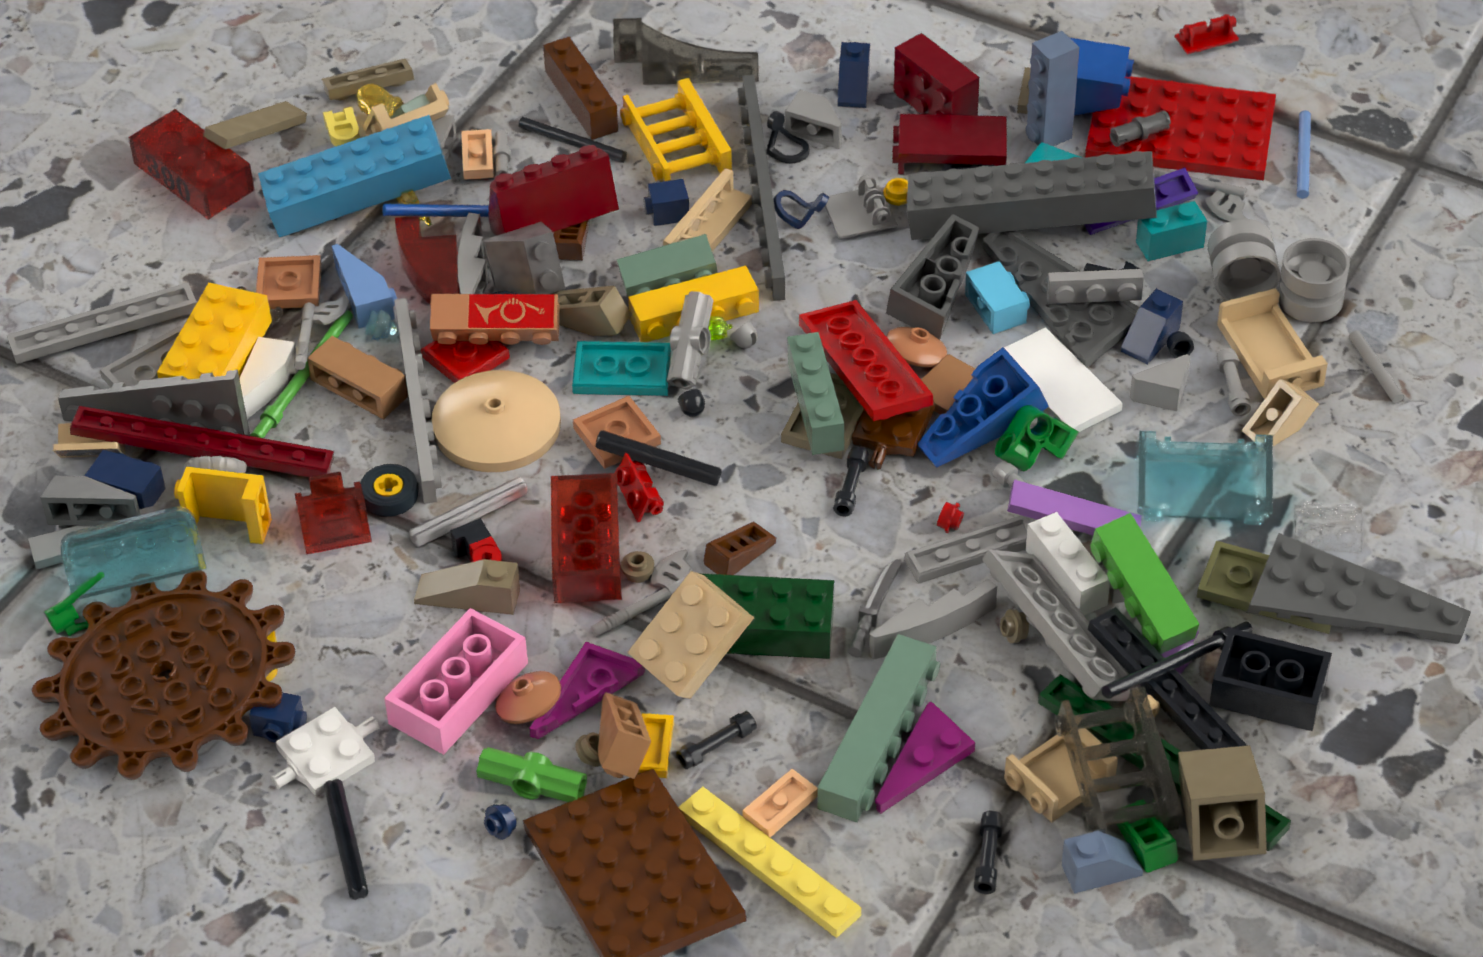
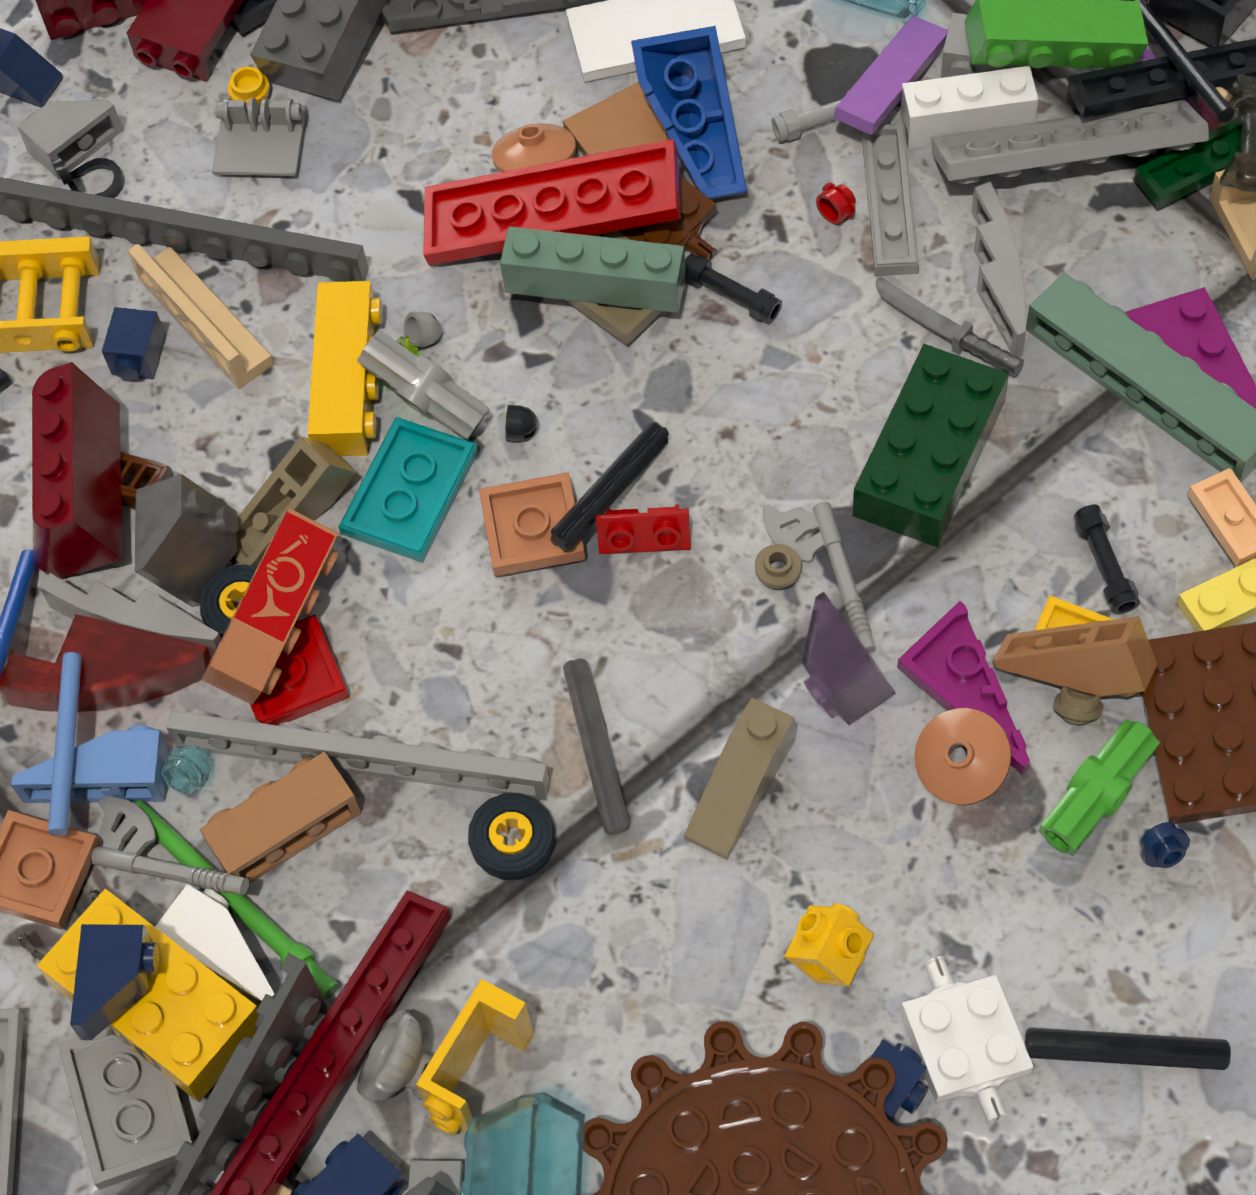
camera: 65 degrees left, 15 degrees up
(202, 305) = (110, 974): none -> dark blue slope
(332, 514) = (533, 921): clear red panel -> none
(351, 662) = (829, 944): none -> yellow brick
(364, 256) = (65, 744): none -> medium blue bar
(456, 681) = (919, 832): bright pink brick -> none
(475, 542) = (680, 746): black leg -> none
(496, 421) = (437, 665): tan dish -> none
(563, 602) = (840, 667): none -> clear purple slope
(585, 538) = (719, 606): clear red brick -> none
(667, 265) = (274, 377): sand green brick -> none
(690, 635) = (970, 523): tan brick -> none
(722, 561) = (804, 468): reddish brown slope -> none
(817, 206) = (235, 171): dark blue piece -> none
(932, 281) = (442, 93): dark grey wedge -> none
(996, 297) = (493, 41): medium azure brick -> none
(1014, 626) = (1039, 191): dark tan plate -> none
(1022, 445) = (753, 67): green piece -> none

